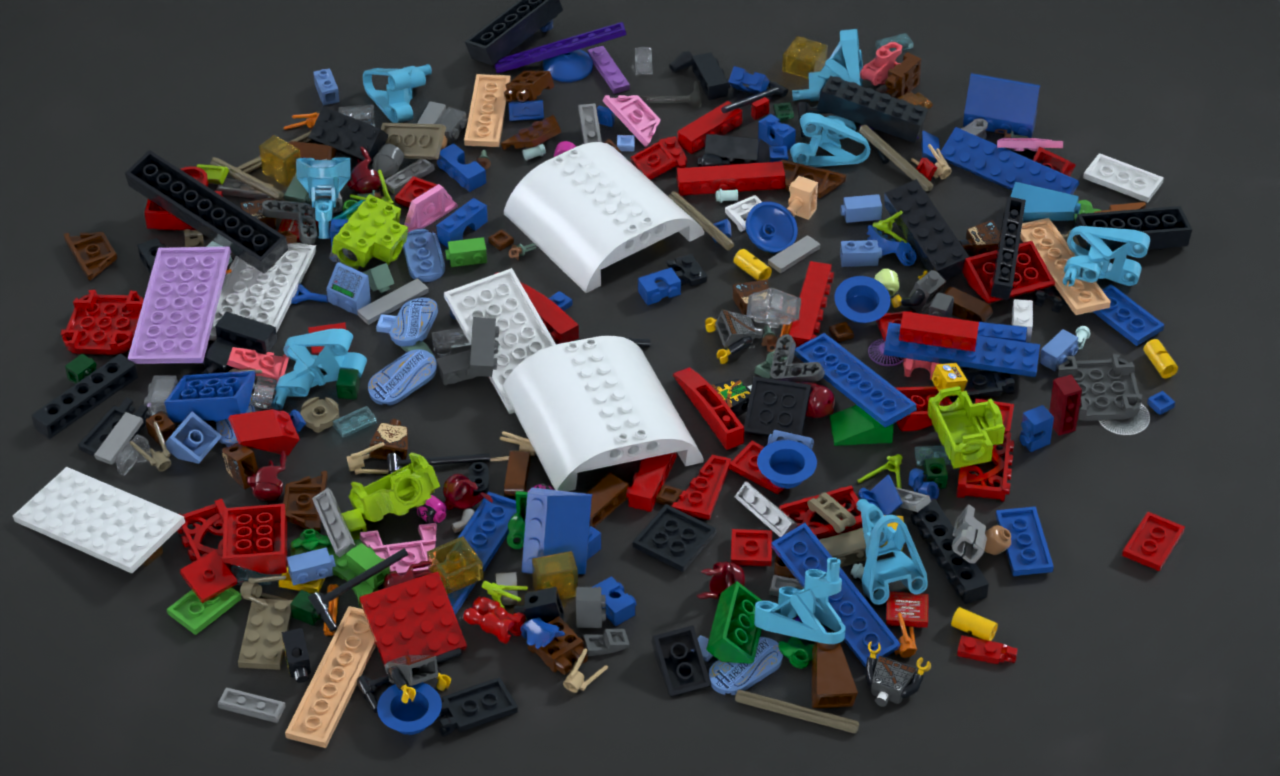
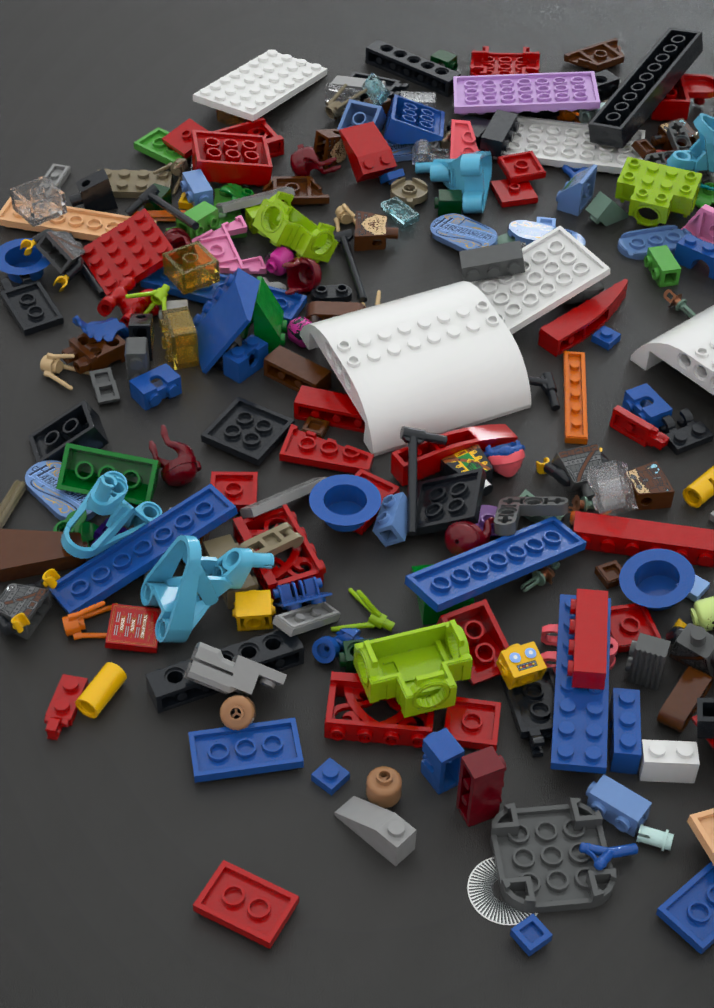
camera: 85 degrees right, 0 degrees up
(159, 413) = (376, 89): none -> clear light blue plate
(298, 323) = (521, 167): none -> red tile
(321, 692) = (38, 201): none -> clear brick
(392, 301) = (571, 221): light grey tile -> none
(501, 240) = (695, 292): reddish brown tile -> none
(636, 330) = (575, 398): none -> orange tile
(683, 296) = (637, 429): none -> red hinge
(718, 414) = (413, 438): none -> black bar
(719, 370) = (506, 458): none -> coral hair
(1041, 497) = (330, 776): none -> blue plate
(1056, 463) = (384, 786): none -> medium nougat head
(1086, 471) = (379, 828): none -> light grey slope
(1098, 358) = (606, 854): none -> blue piece
(1160, 358) = (626, 939): yellow pin -> none

